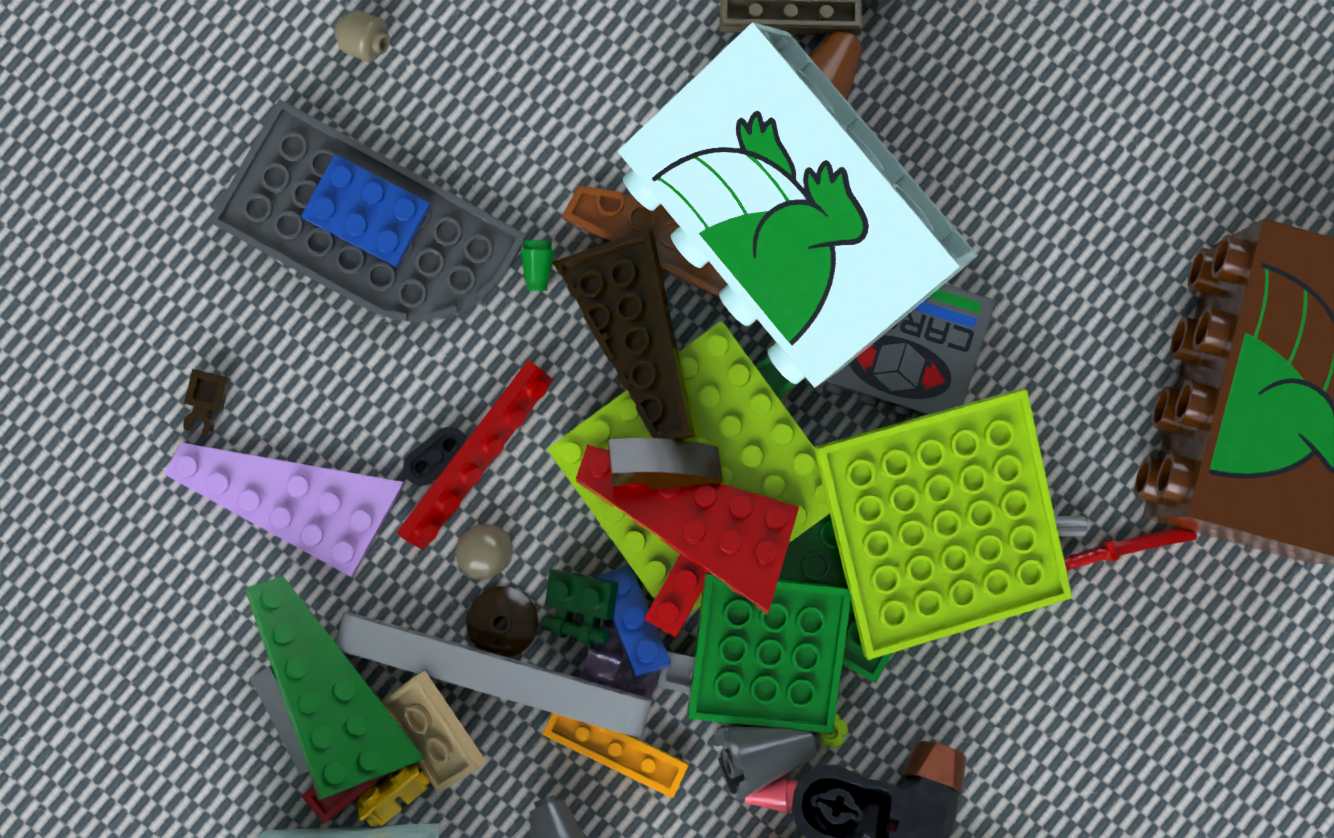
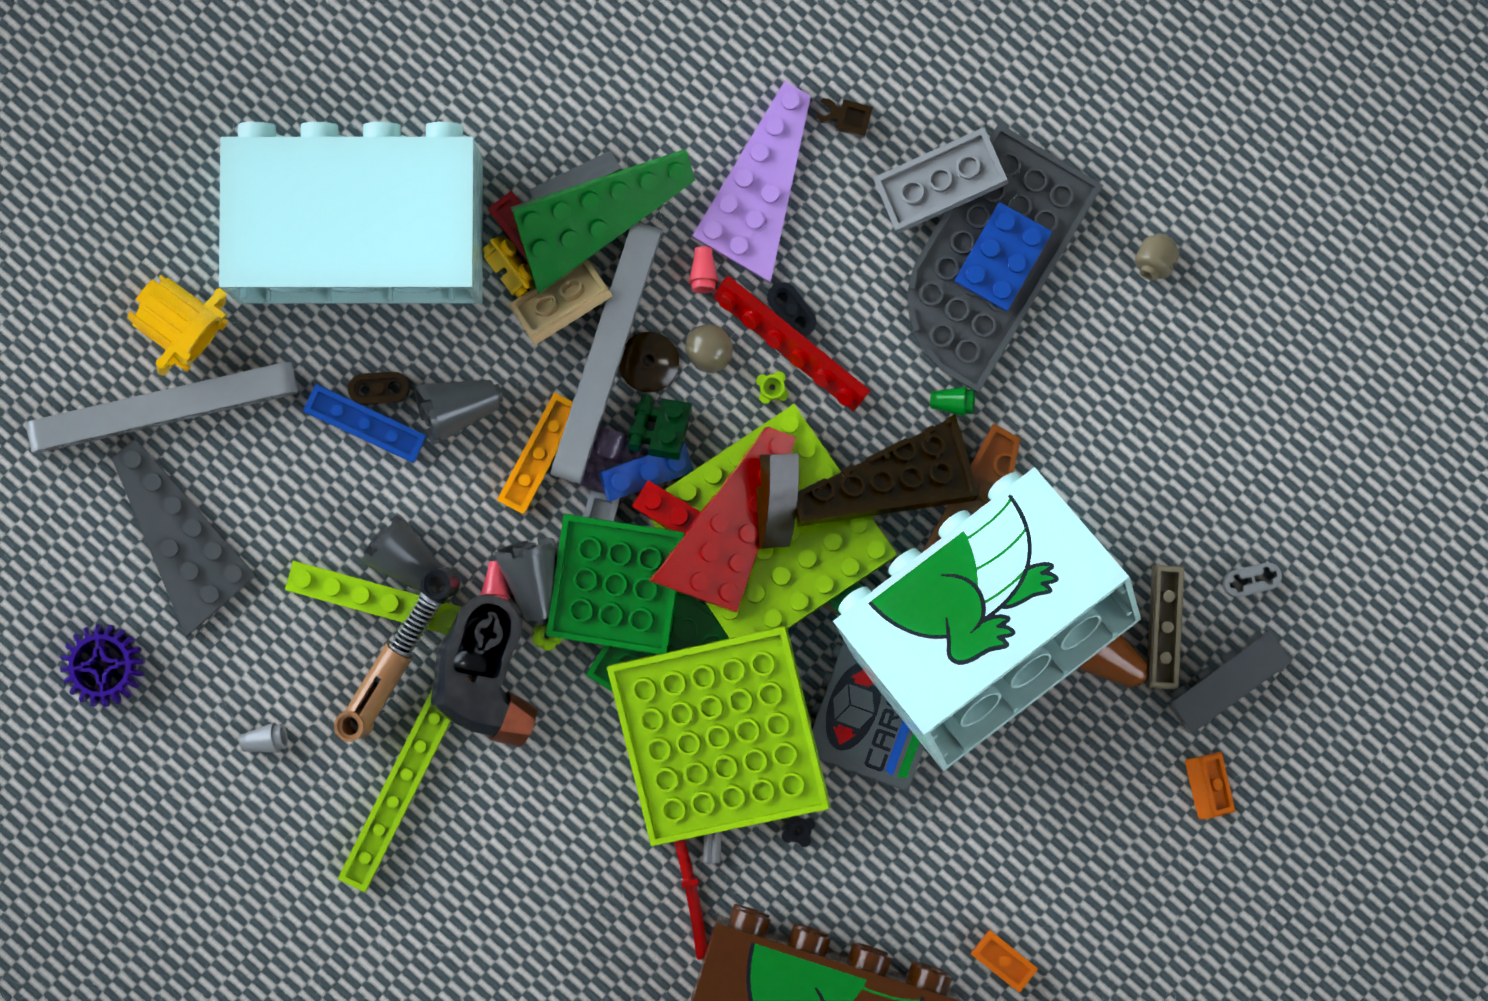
camera: 85 degrees right, 0 degrees up
(277, 285) = (940, 180): none -> light grey plate
(394, 561) = (703, 271): none -> coral cone
(519, 469) = (773, 379): none -> lime plate
(1052, 421) = (802, 838): none -> black plate
(1180, 186) = (1004, 961): none -> orange plate

